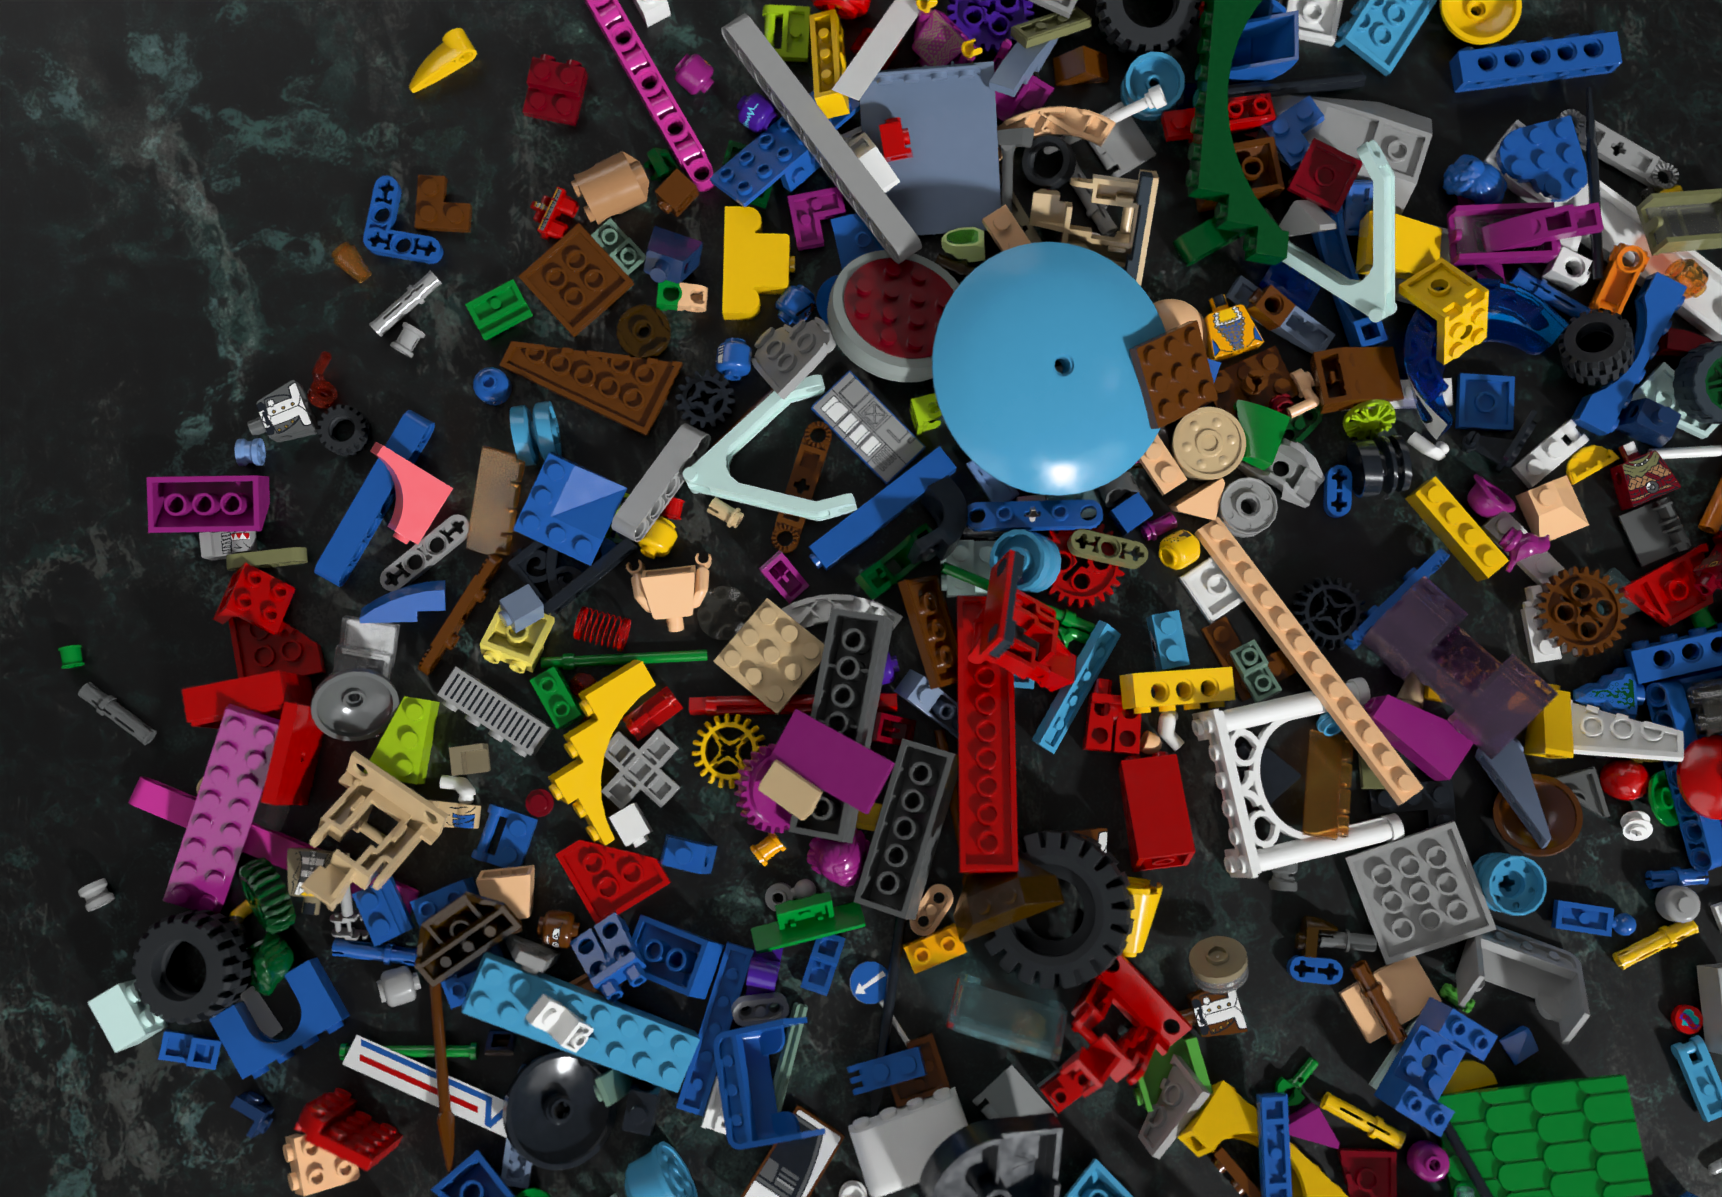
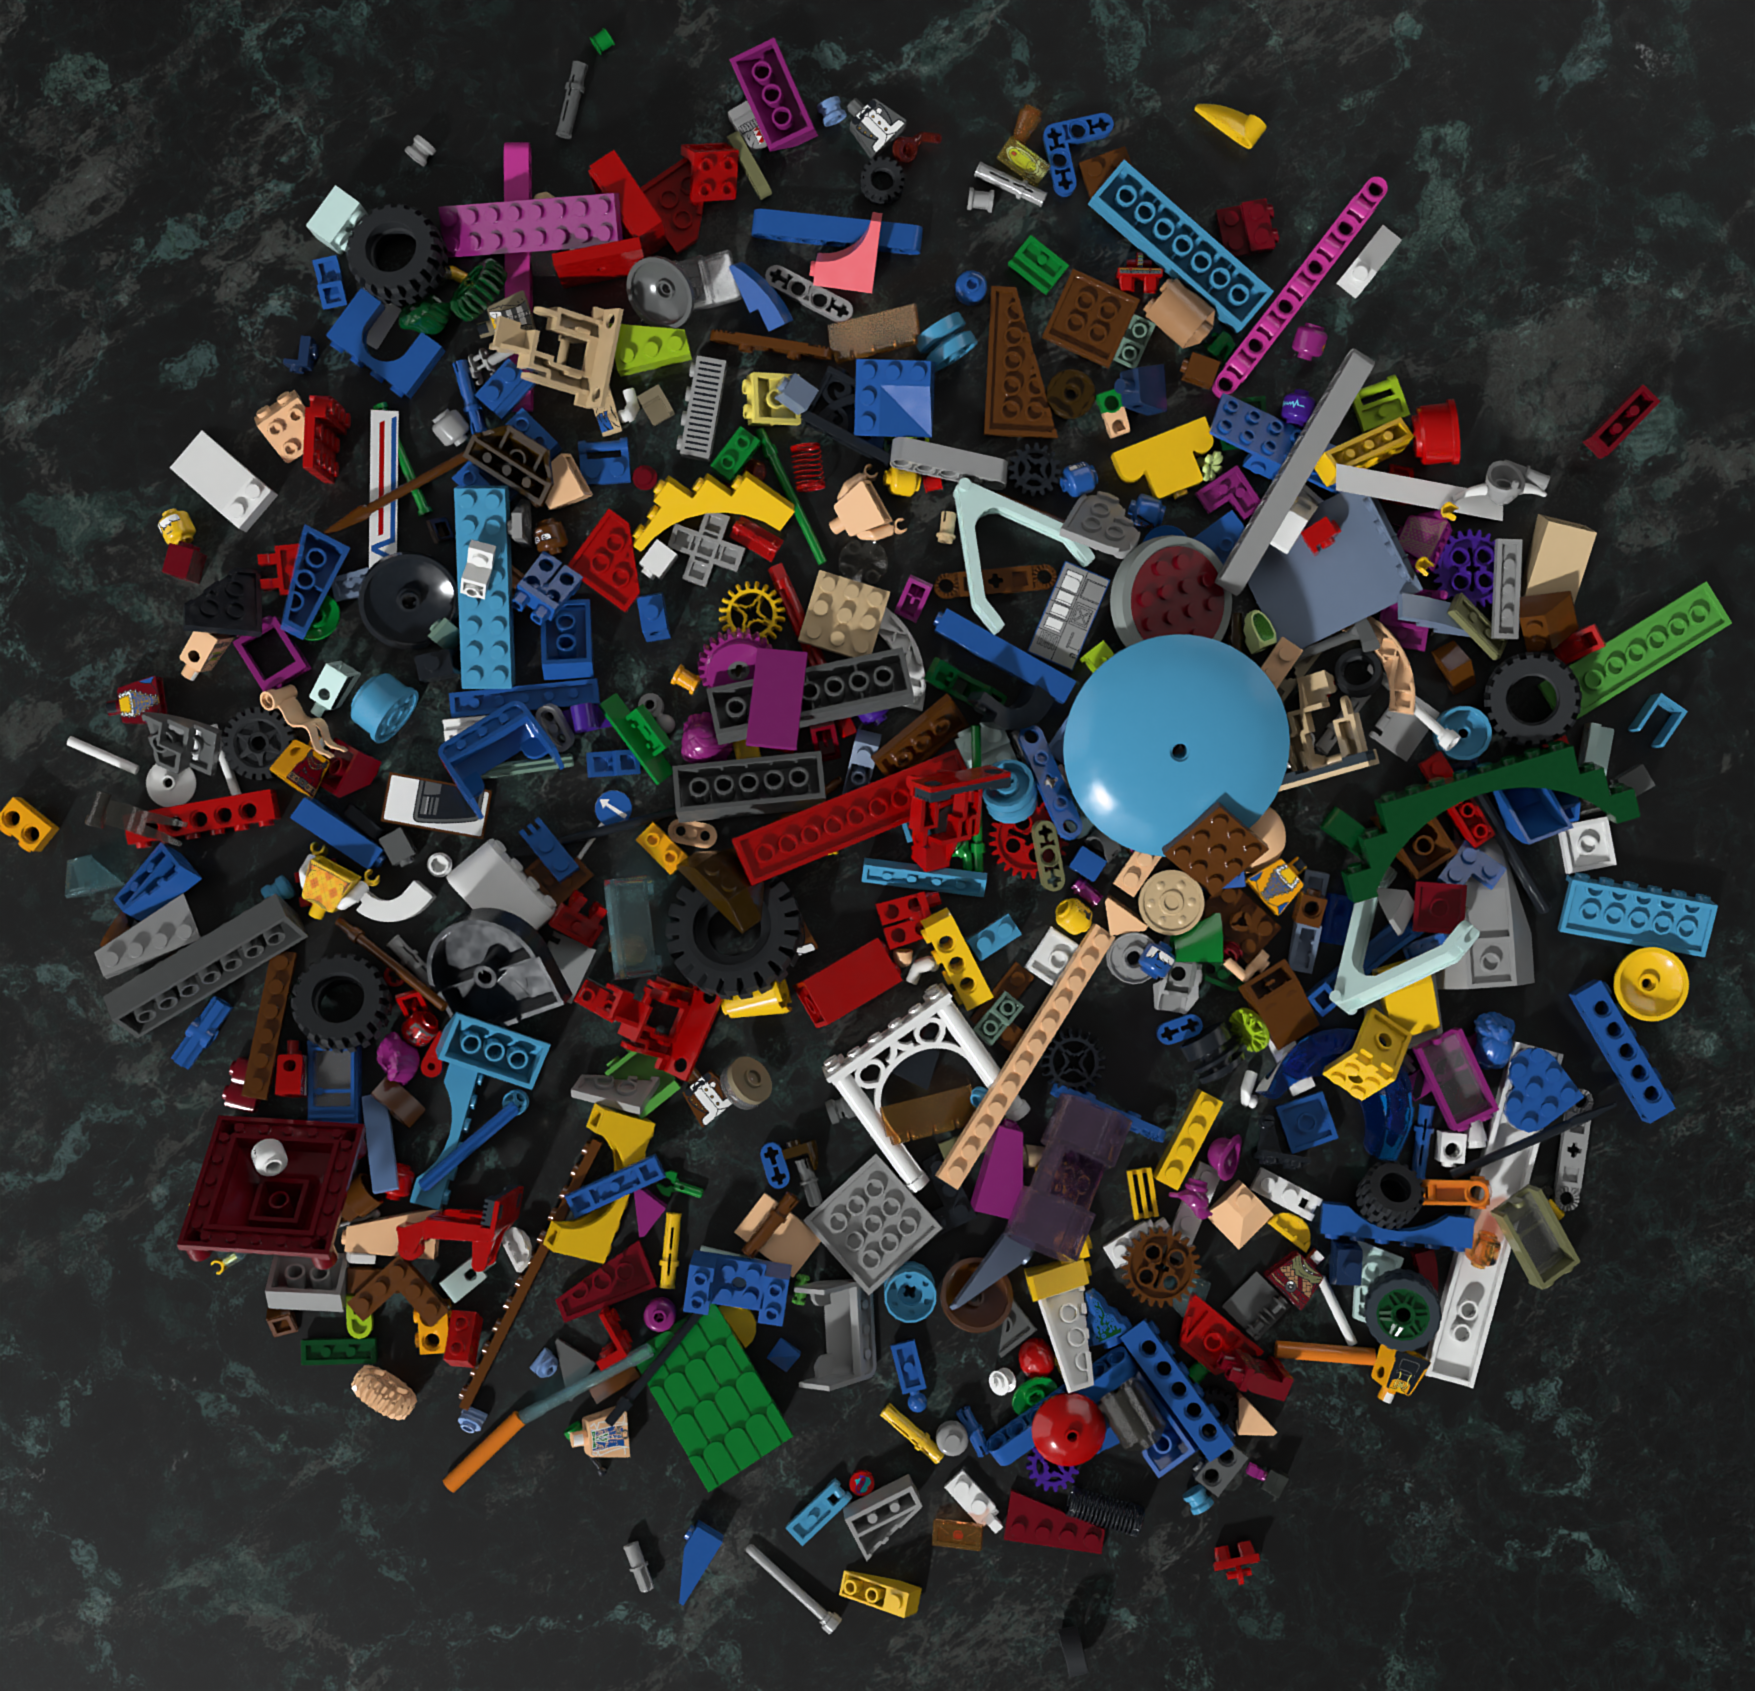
camera: 65 degrees right, 5 degrees up
(388, 281) = (1023, 161): none -> clear yellow tile
(542, 159) = (1180, 246): none -> dark azure brick
(776, 222) = (1210, 465): none -> yellowish green plant
(790, 790) = (739, 675): tan slope -> none
(978, 1075) = (576, 925): none -> red plate
(1262, 482) = (1156, 960): none -> blue head
(1515, 603) = (1145, 1214): none -> yellow tile
(1541, 227) = (1471, 1107): magenta slope -> none

